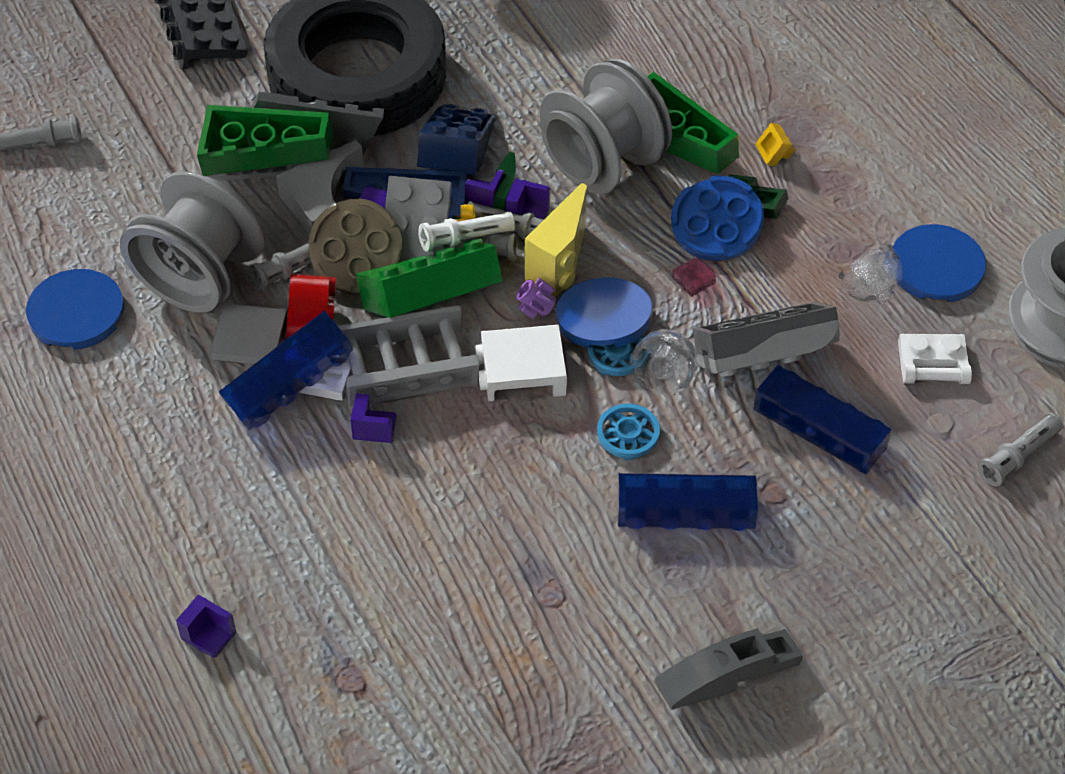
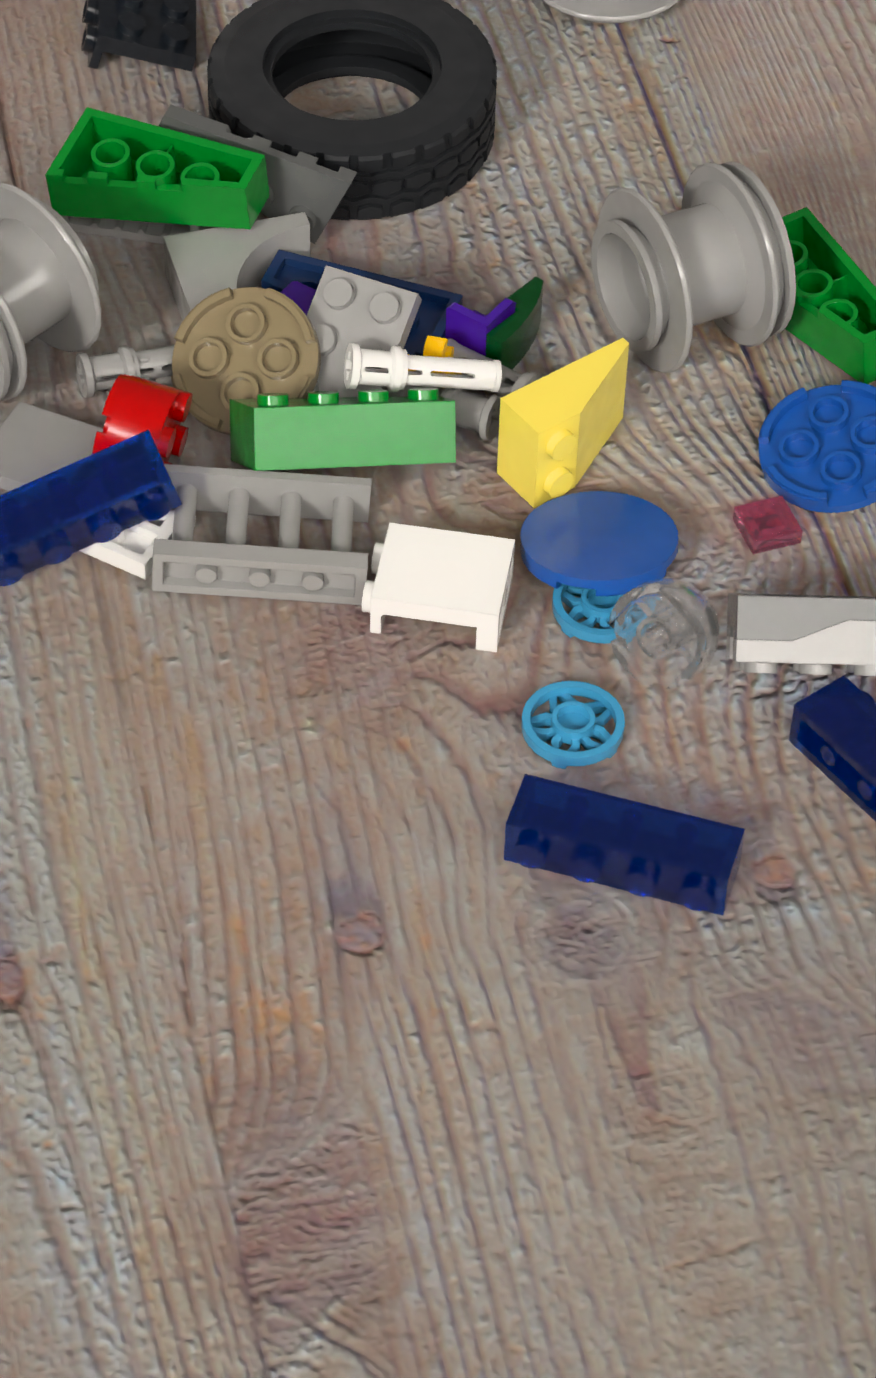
camera: 15 degrees right, 5 degrees down
(371, 424) = (171, 621): dark purple panel -> none
(455, 139) = (462, 246): dark blue slope -> none
(528, 197) = (539, 349): dark purple panel -> none
(536, 298) = (498, 497): medium lavender gear -> none
(724, 664) = (579, 1093): dark grey slope -> none

